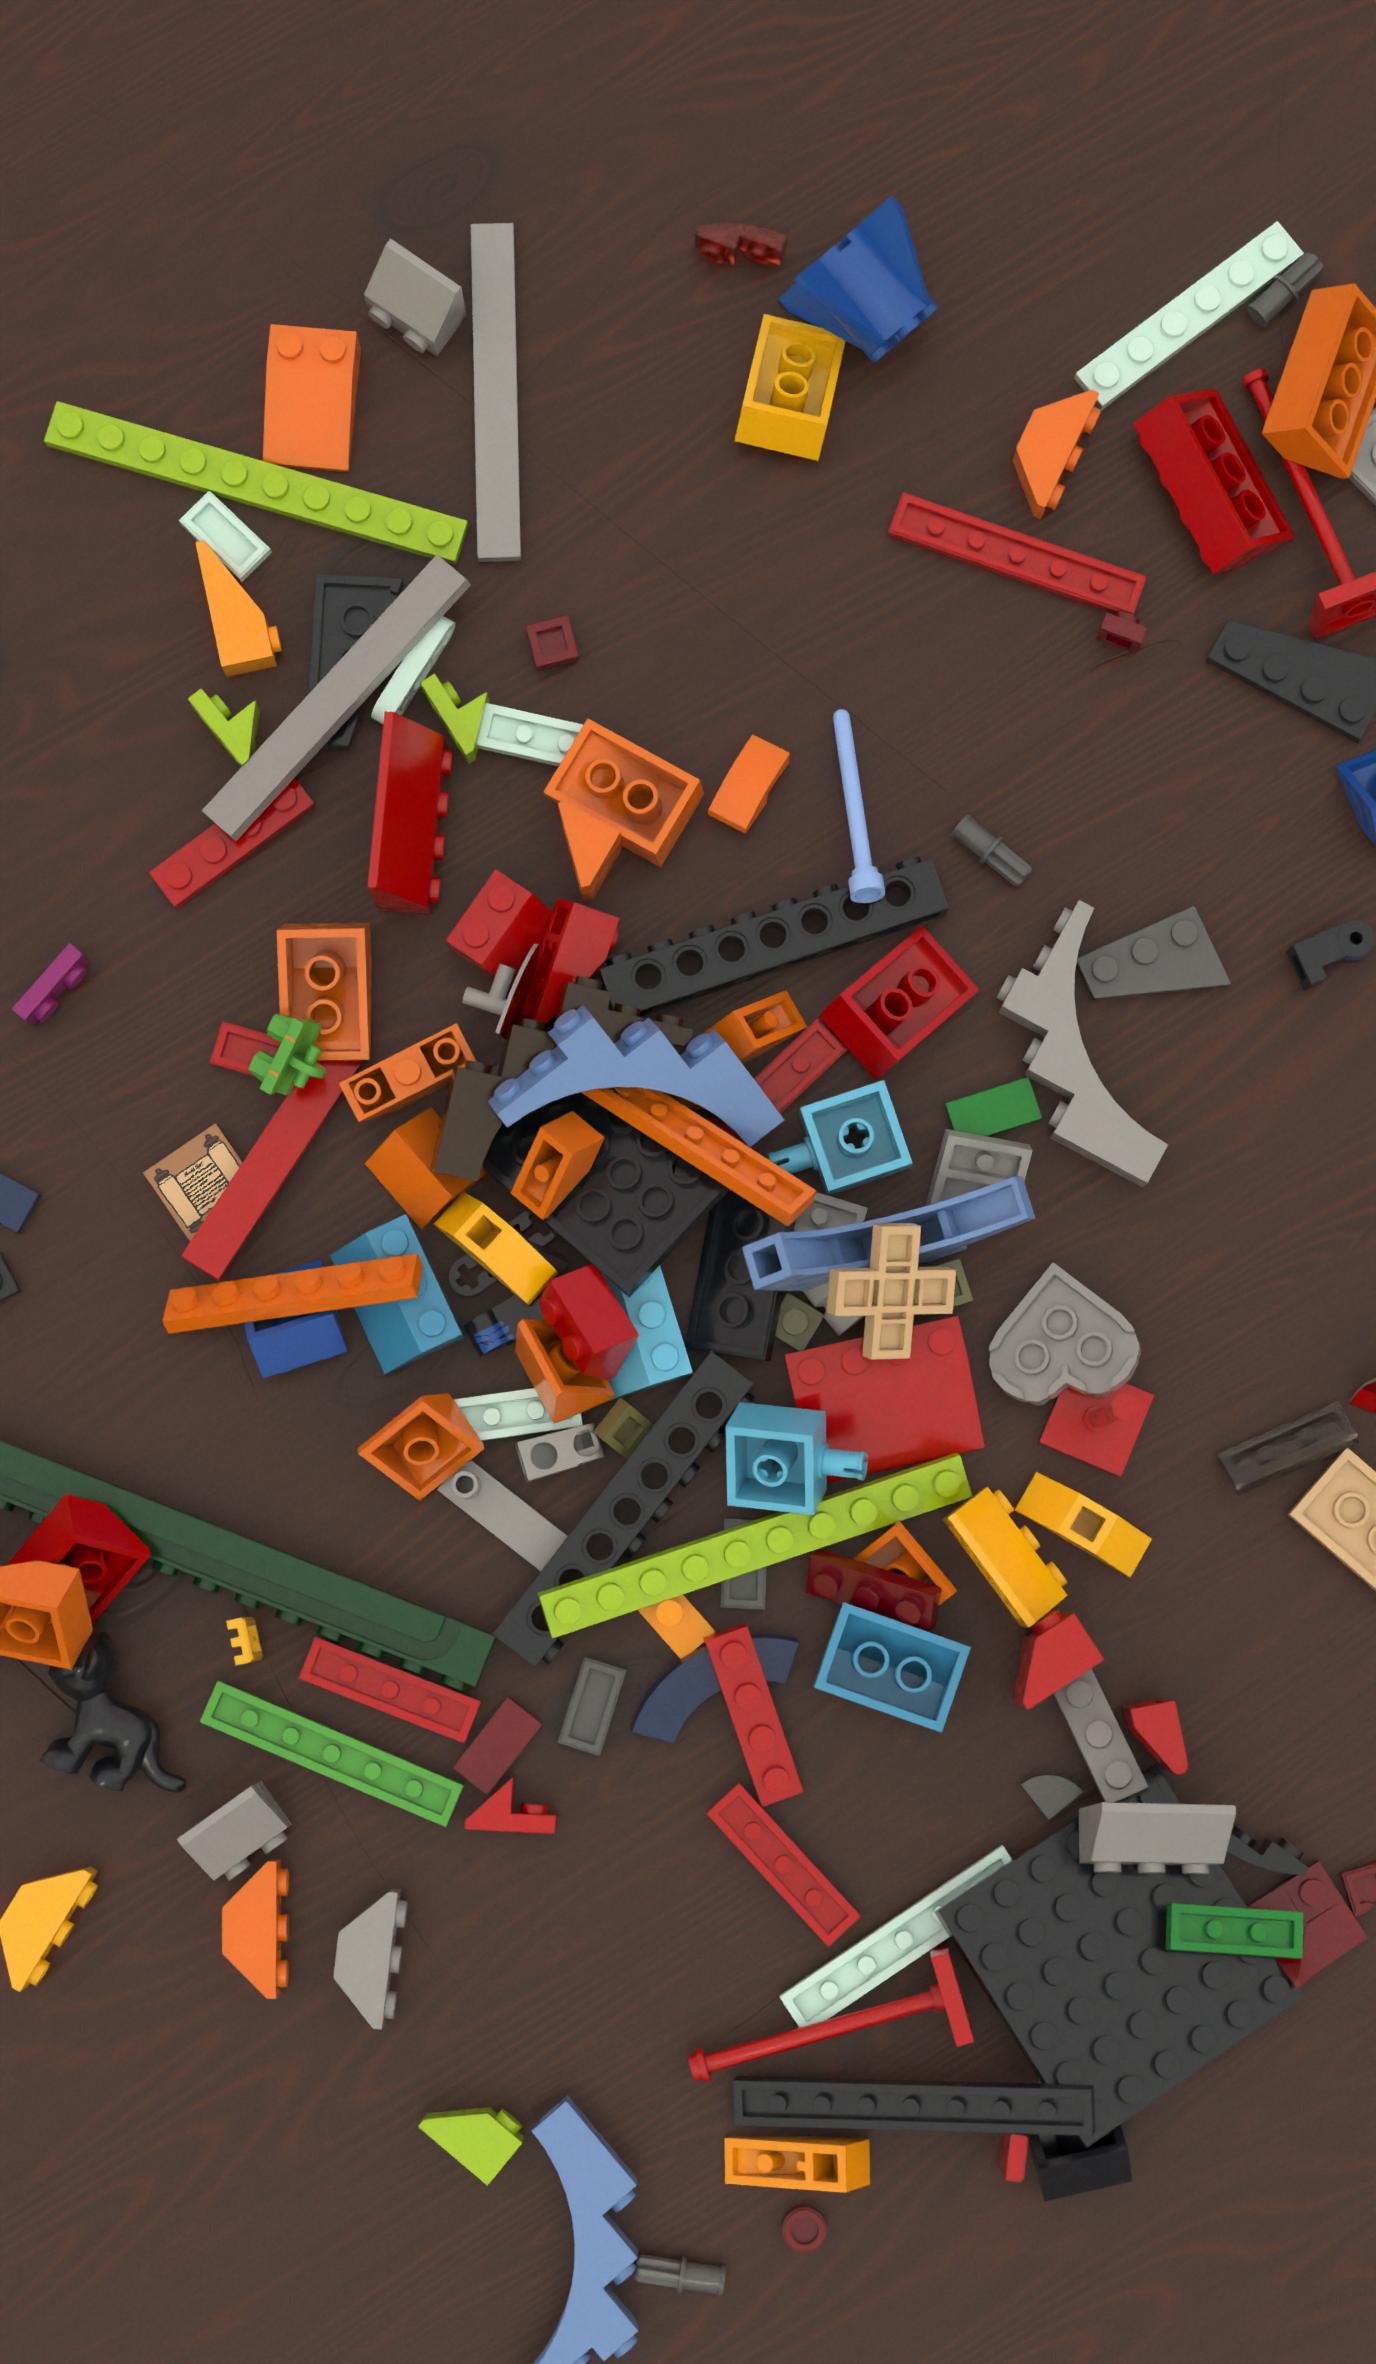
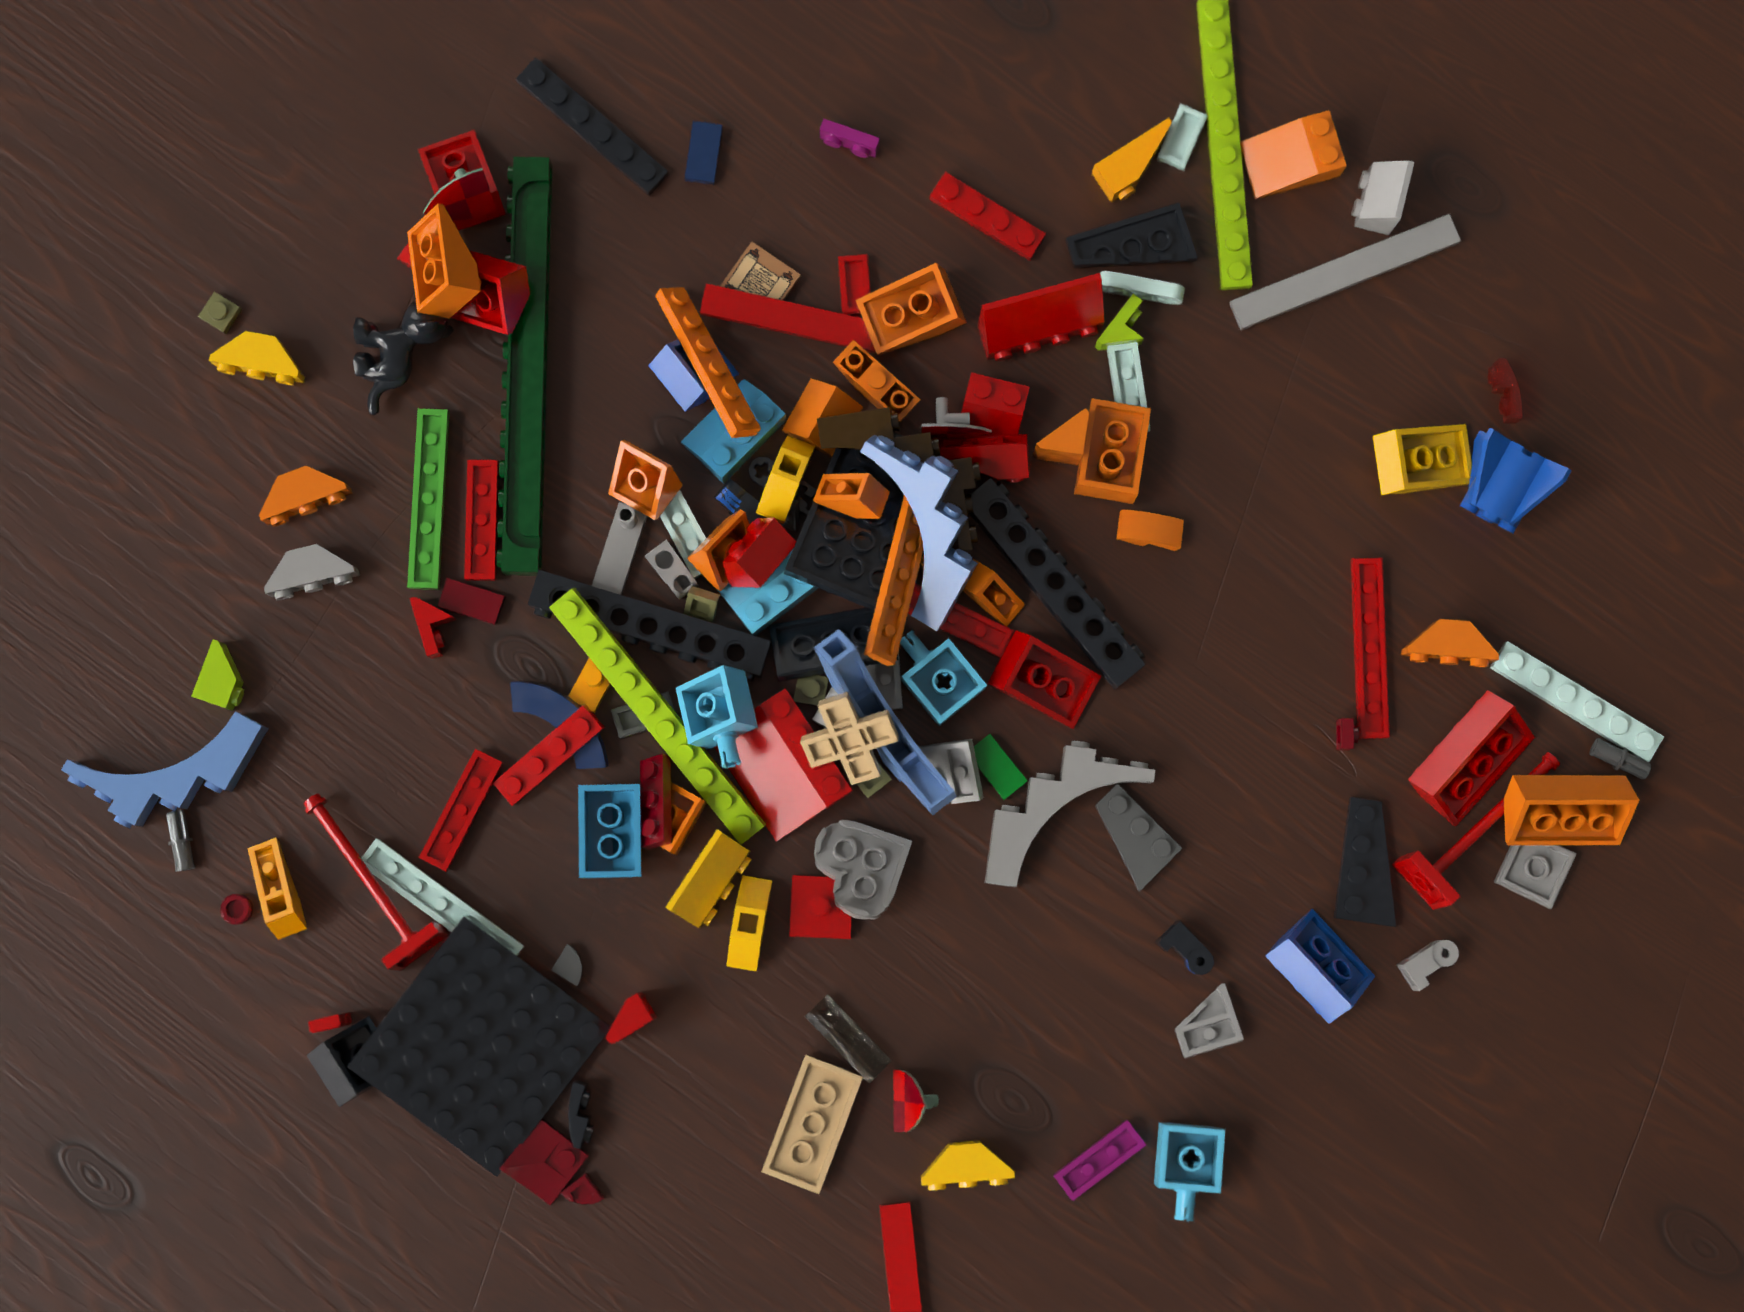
camera: 65 degrees right, 0 degrees up
(236, 1831) = (356, 456): light grey slope -> none
(238, 733) = (1055, 193): lime slope -> none
(247, 1639) = (476, 413): yellow tile -> none
(294, 1059) = (859, 305): bright green hips -> none
(336, 697) = (1102, 244): light grey tile -> none
(552, 642) = (1193, 369): dark red plate -> none
(592, 1706) = (518, 651): dark grey tile -> none
(866, 883) = (1112, 626): light blue piece -> none
(914, 2105) = (336, 948): black plate -> none
(991, 850) = (1167, 702): dark grey axle -> none
(1052, 1657) = (653, 931): red slope -> none
(1100, 1739) = (614, 983): light grey plate -> none
(1154, 1836) = (561, 1039): light grey slope -> none
(1234, 1931) = (520, 1114): green plate -> none

